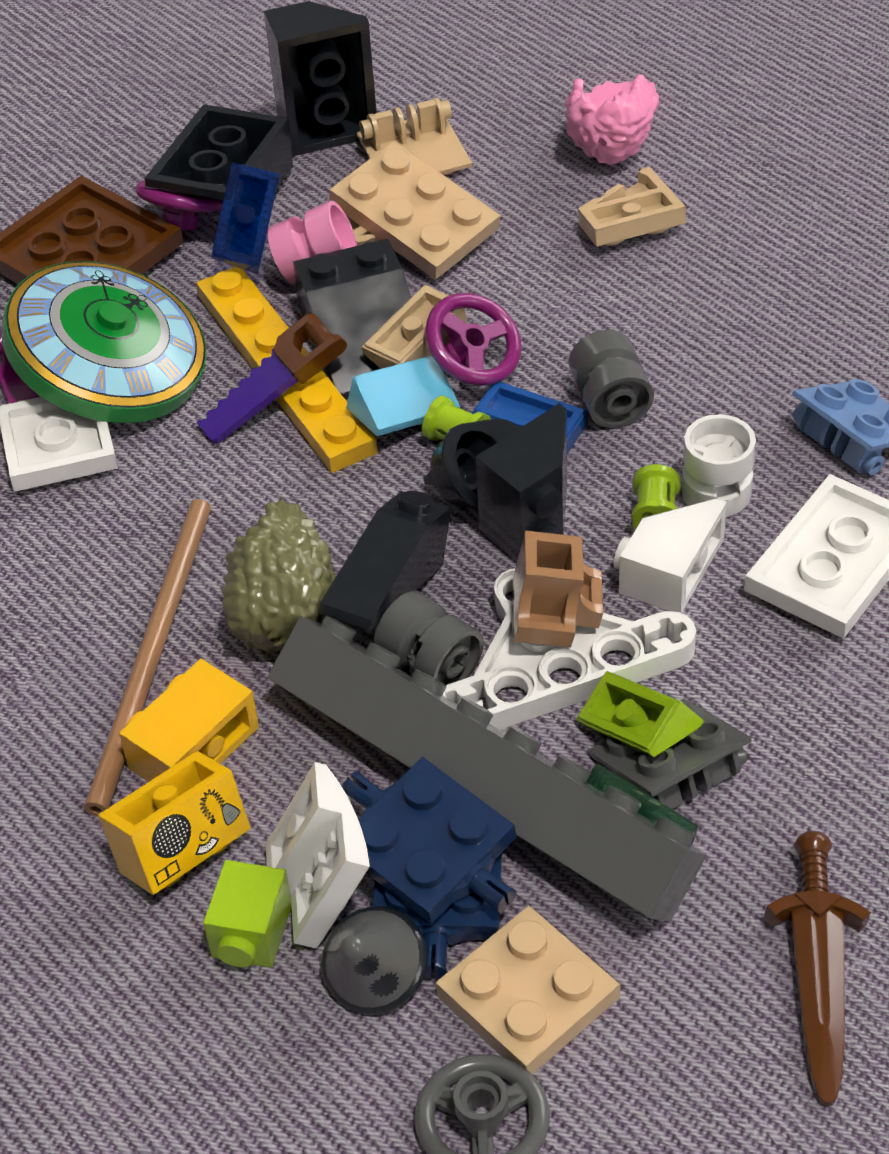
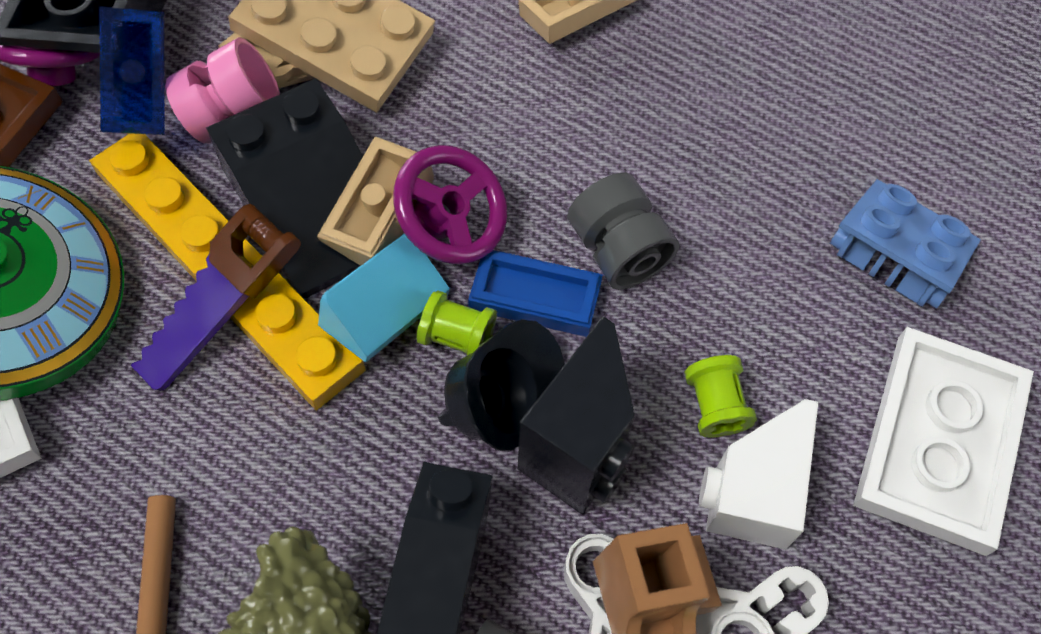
camera: 20 degrees left, 15 degrees up
(718, 462) = (785, 338): white wheel -> none

